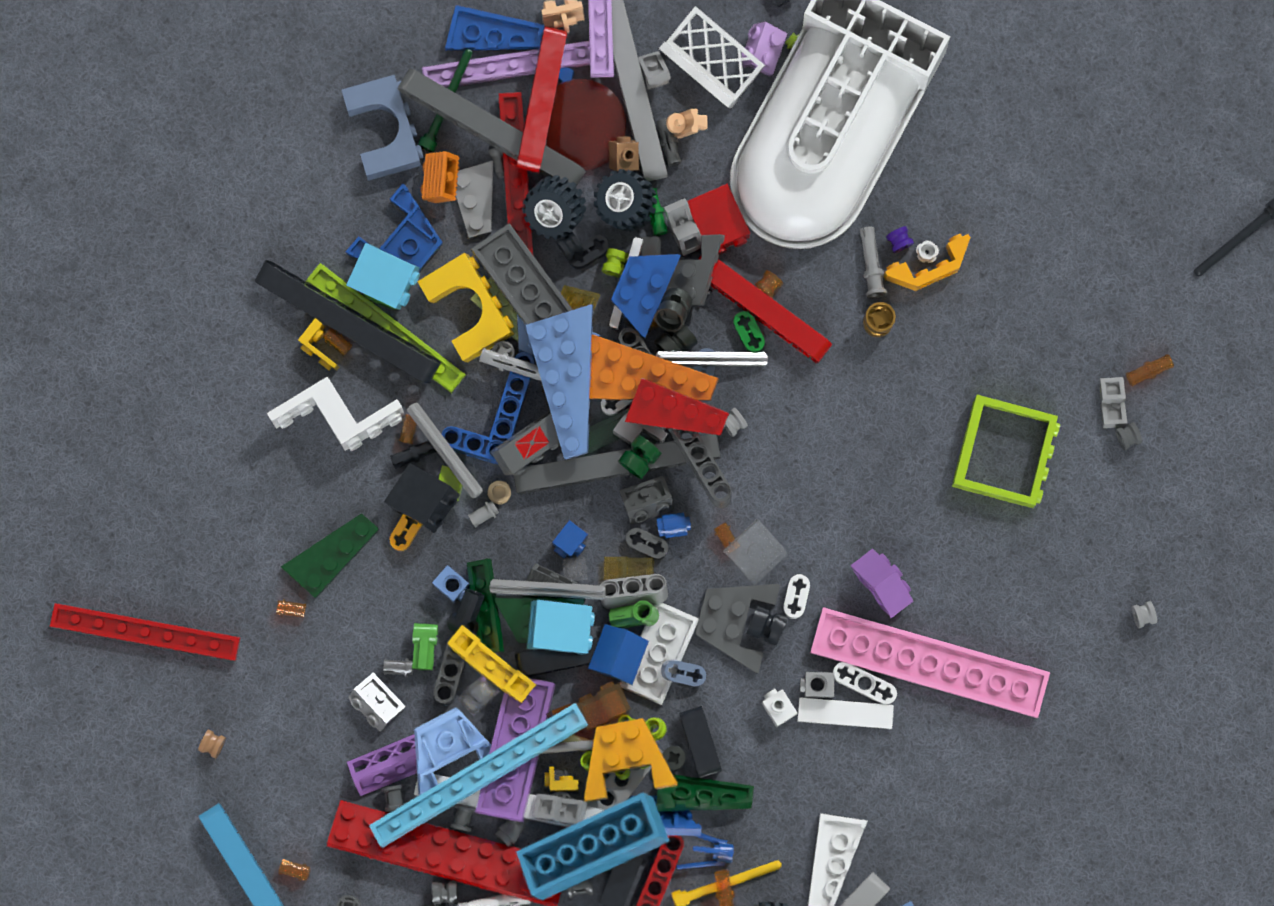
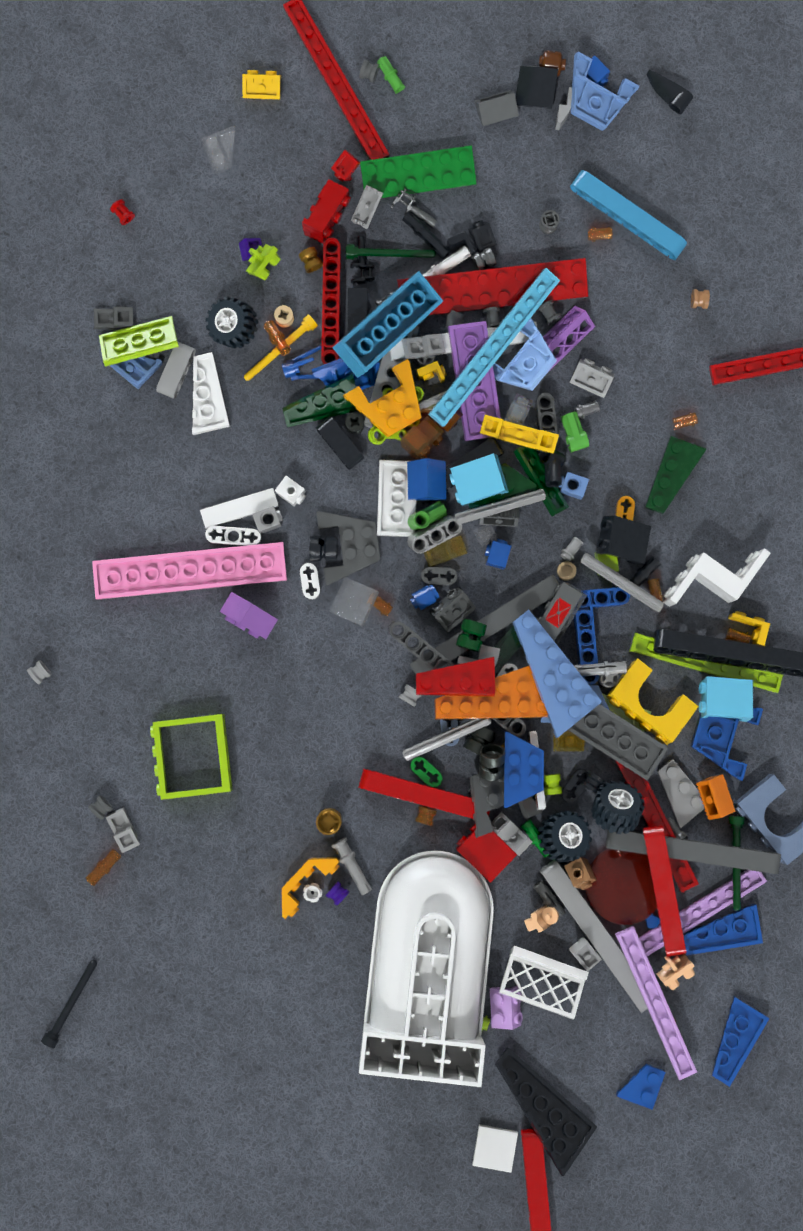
camera: 160 degrees right, 5 degrees up
(682, 678) = (371, 484): sand blue beam -> none

